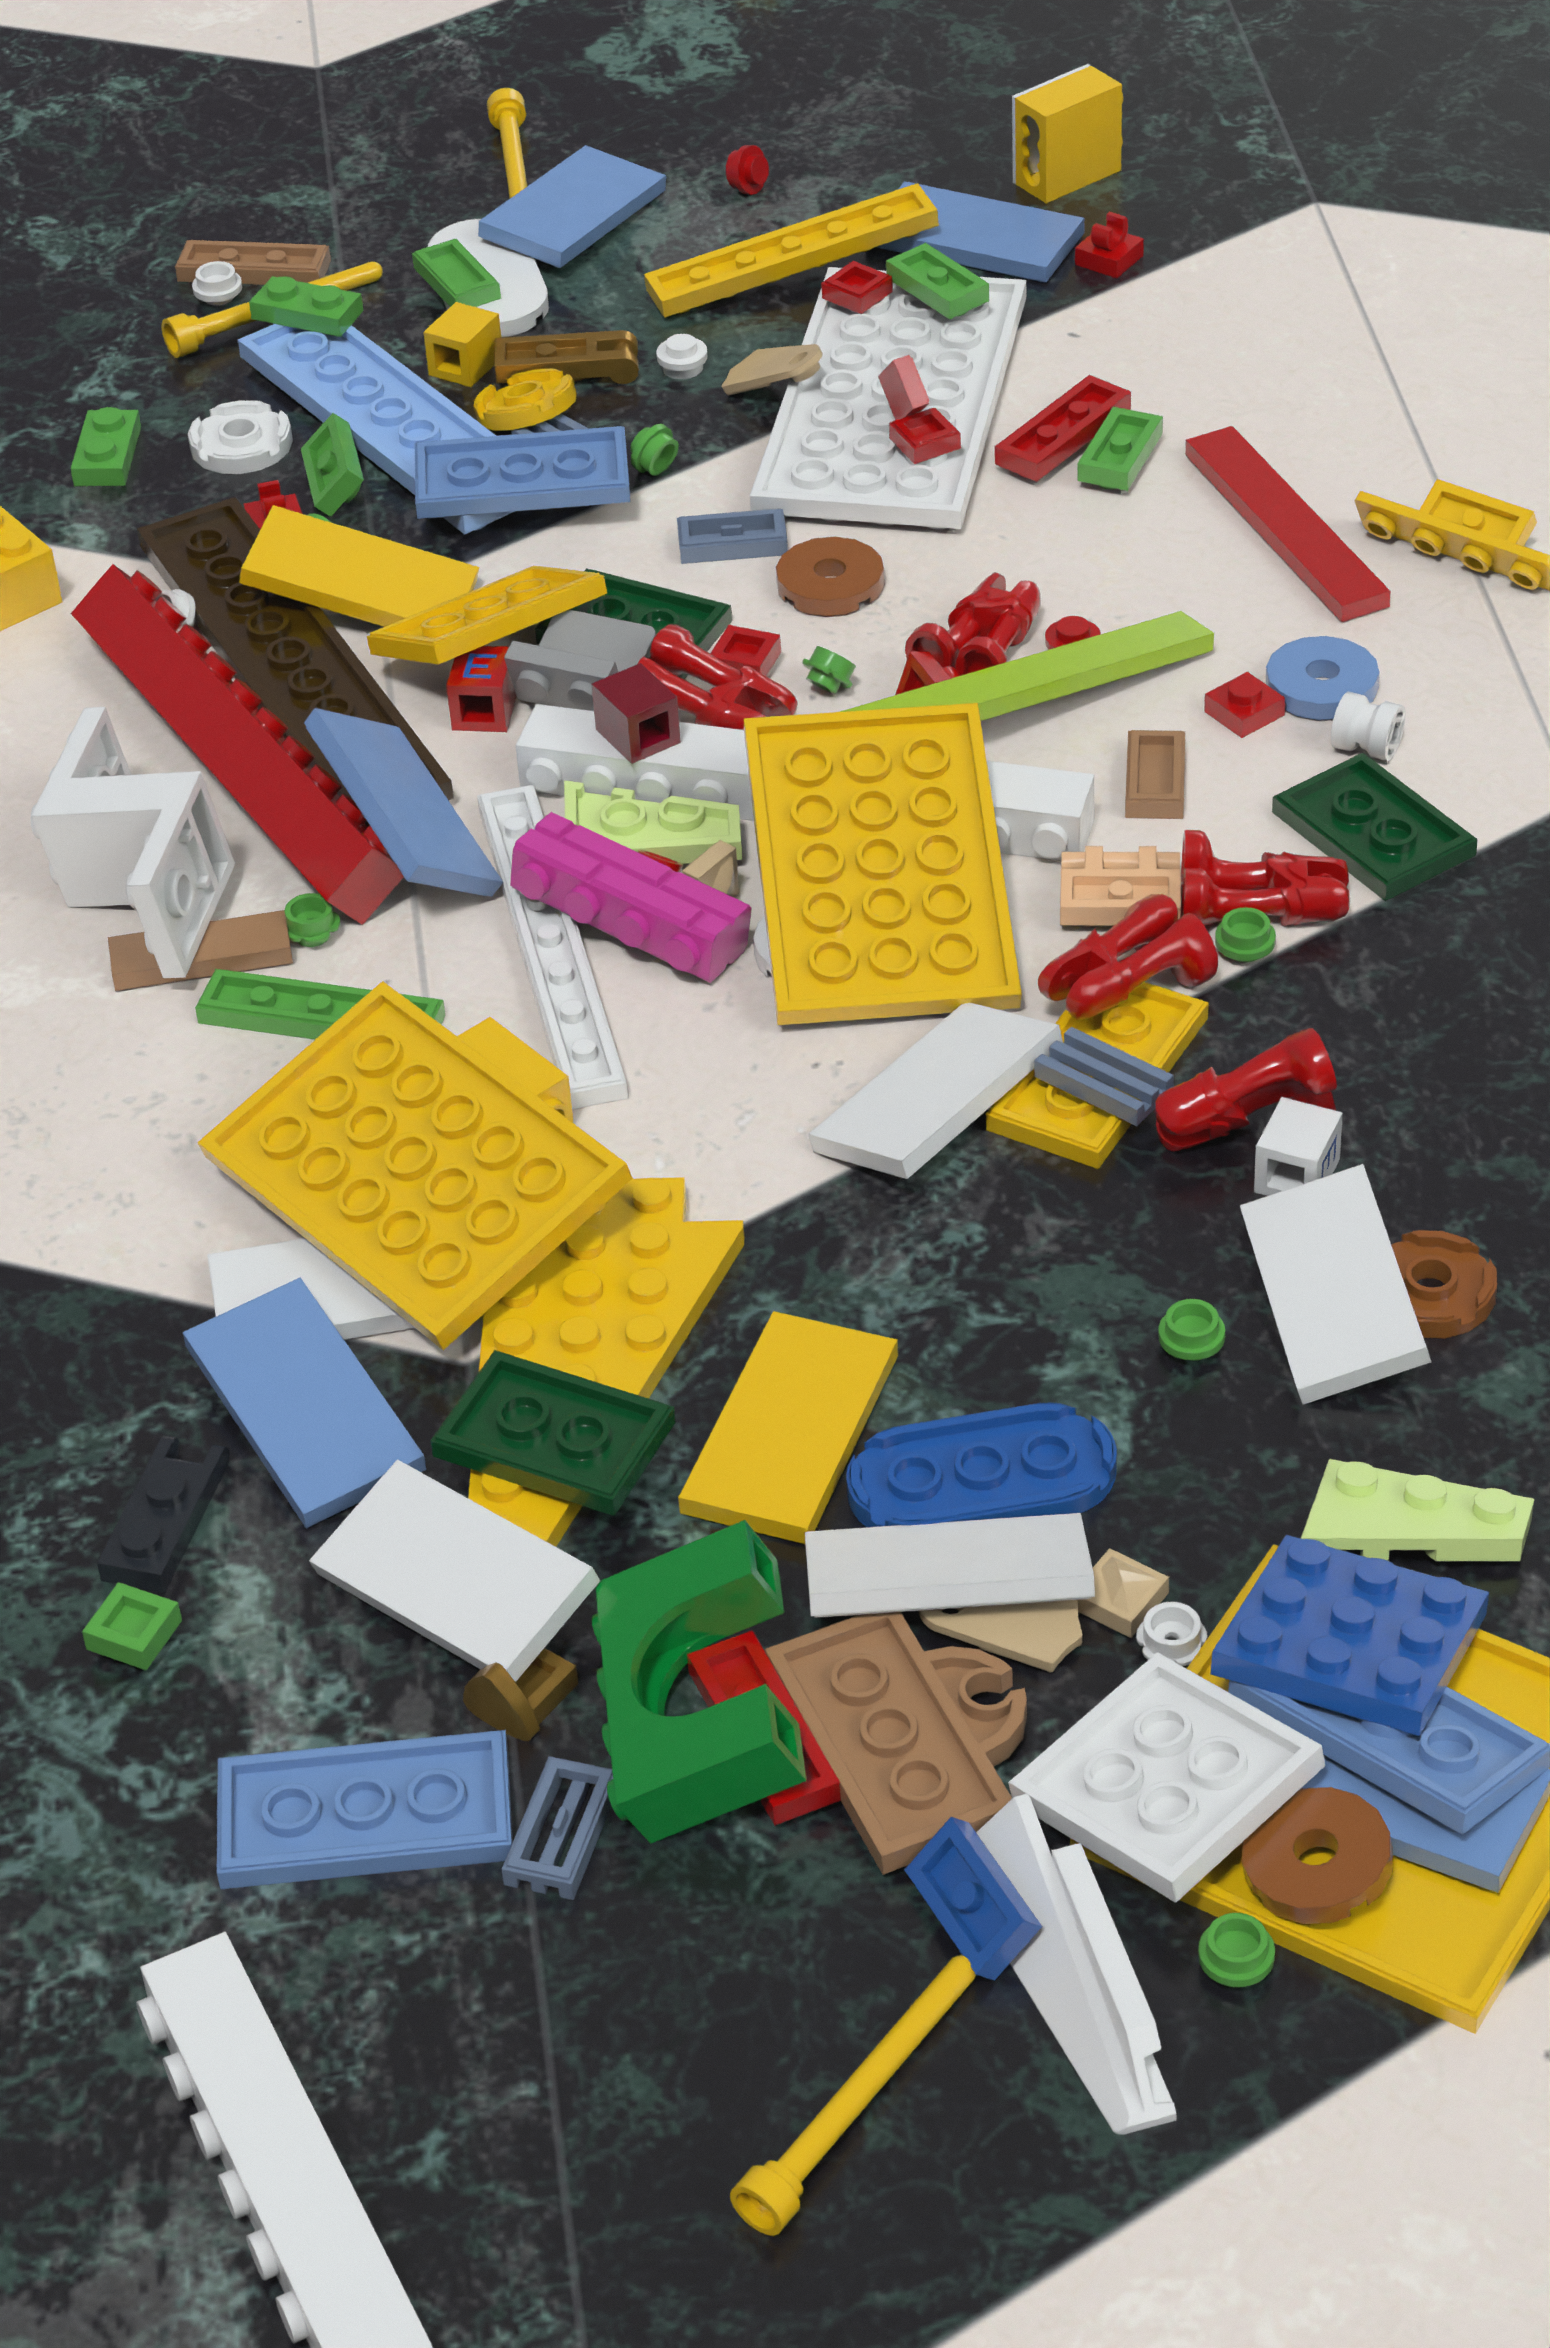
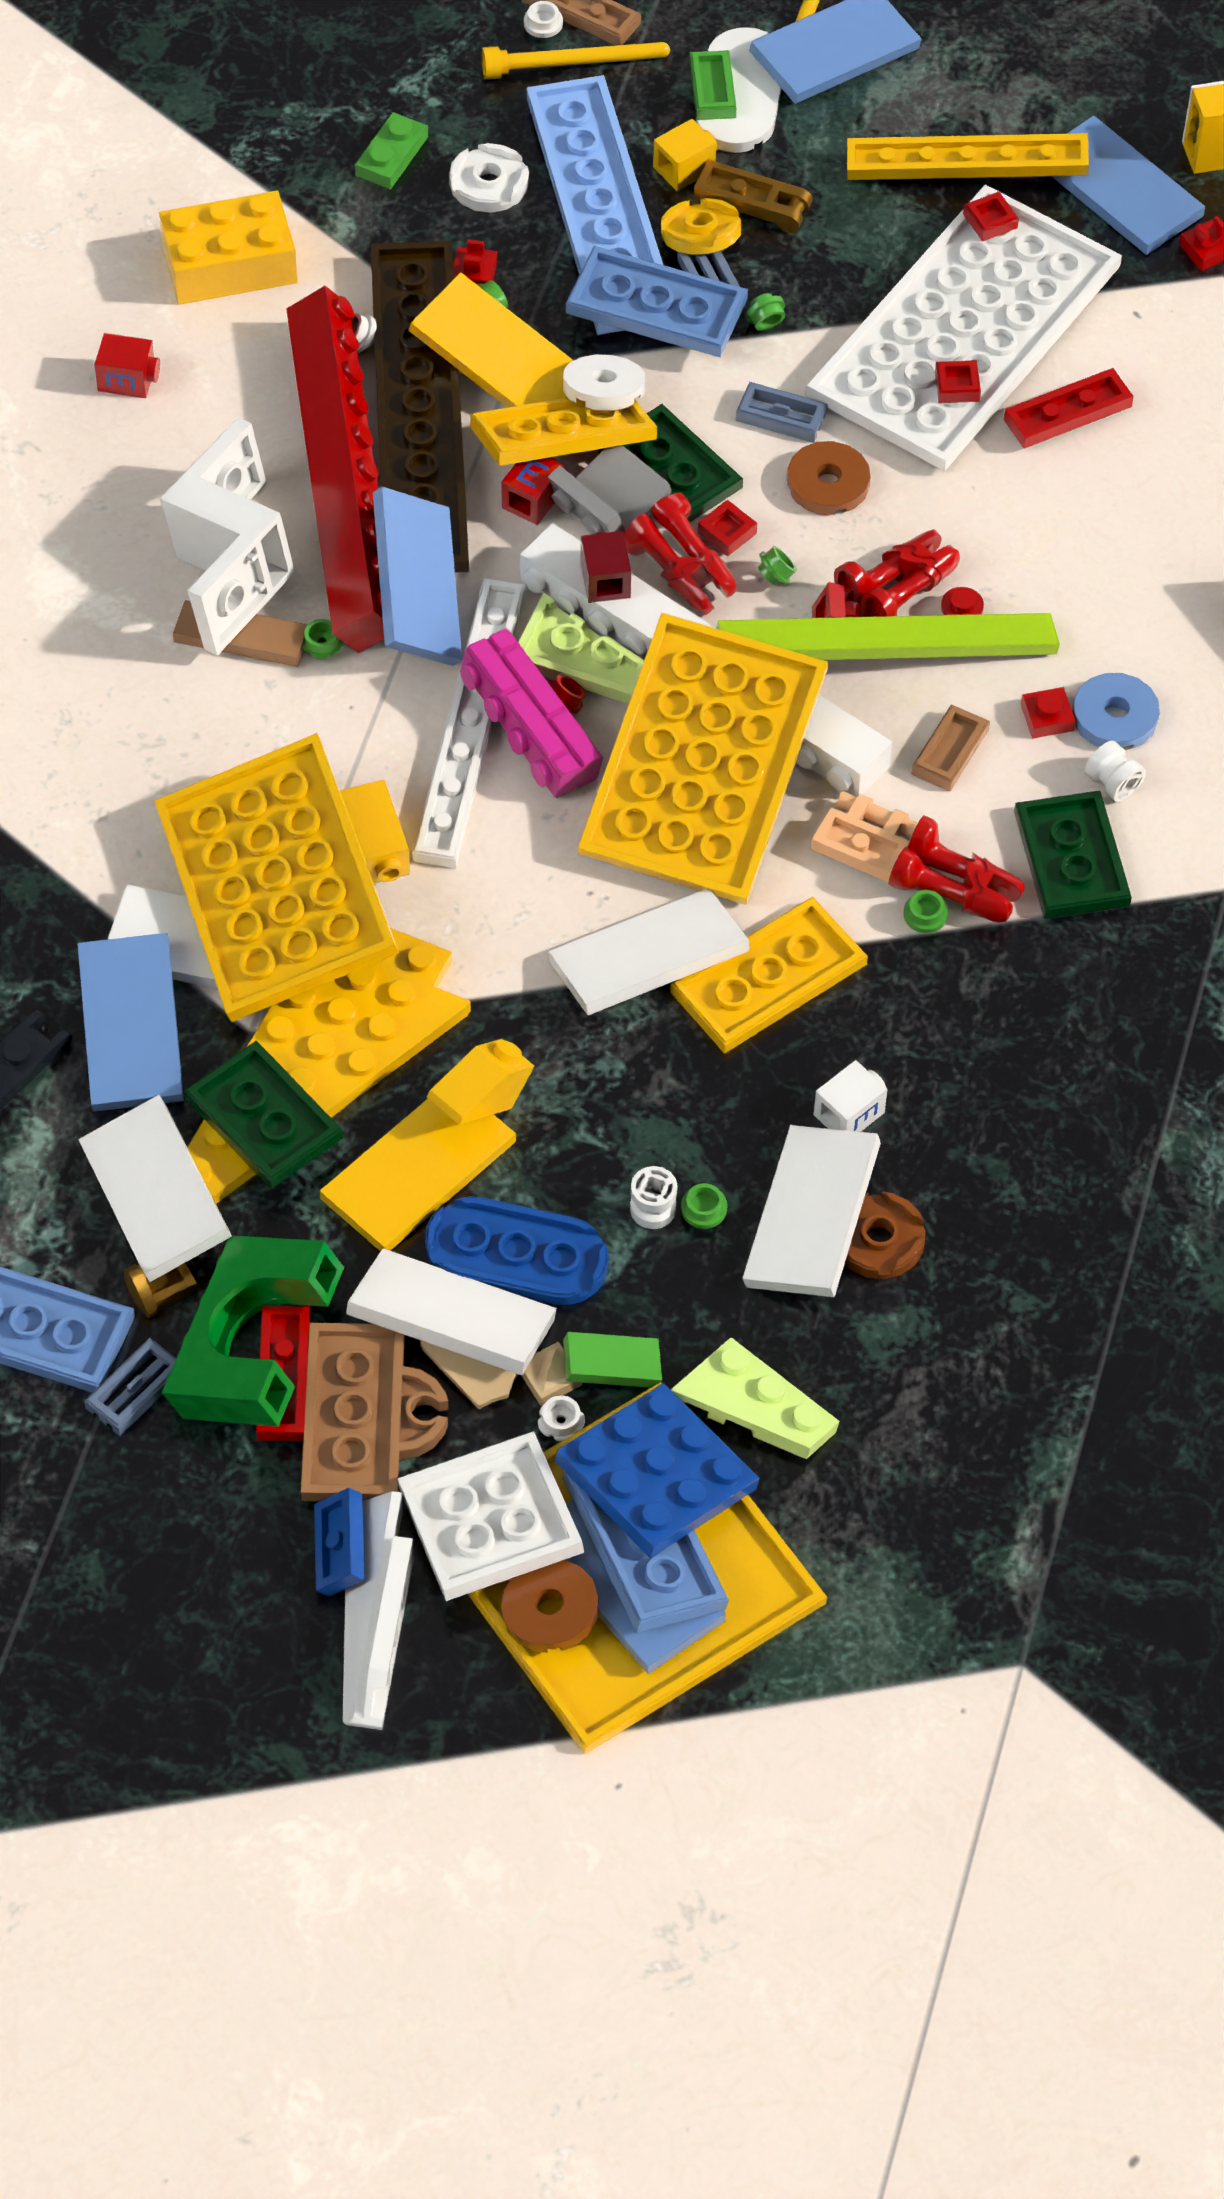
camera: 20 degrees right, 15 degrees up
(284, 1004) = (292, 714): bright green tile -> none
(306, 306) = (587, 77): bright green plate -> none
(332, 465) = (534, 235): bright green plate -> none
(512, 558) = (604, 382): none -> white tile
(682, 356) = (837, 225): white plate -> none
(716, 868) = (598, 716): tan tile -> none
(747, 169) = (983, 57): red plate -> none
(770, 2193) = (127, 1673): yellow piece -> none
(771, 366) = (889, 267): tan piece -> none
(827, 1285) = (482, 1082): none -> yellow slope
(903, 387) = (957, 339): tile -> none
(938, 281) = (1048, 237): bright green plate -> none
(1097, 982) = (794, 908): red piece -> none
(1110, 1070) = (743, 962): sand blue tile -> none
(1120, 449) = (1097, 444): bright green plate -> none
(1124, 1341) = (646, 1205): none -> white wheel
(1195, 1540) = (612, 1359): none -> bright green tile
(1215, 1104) = (821, 1044): red piece -> none
(1236, 1950) = (474, 1643): bright green plate -> none
(1288, 524) = (1177, 560): red tile -> none

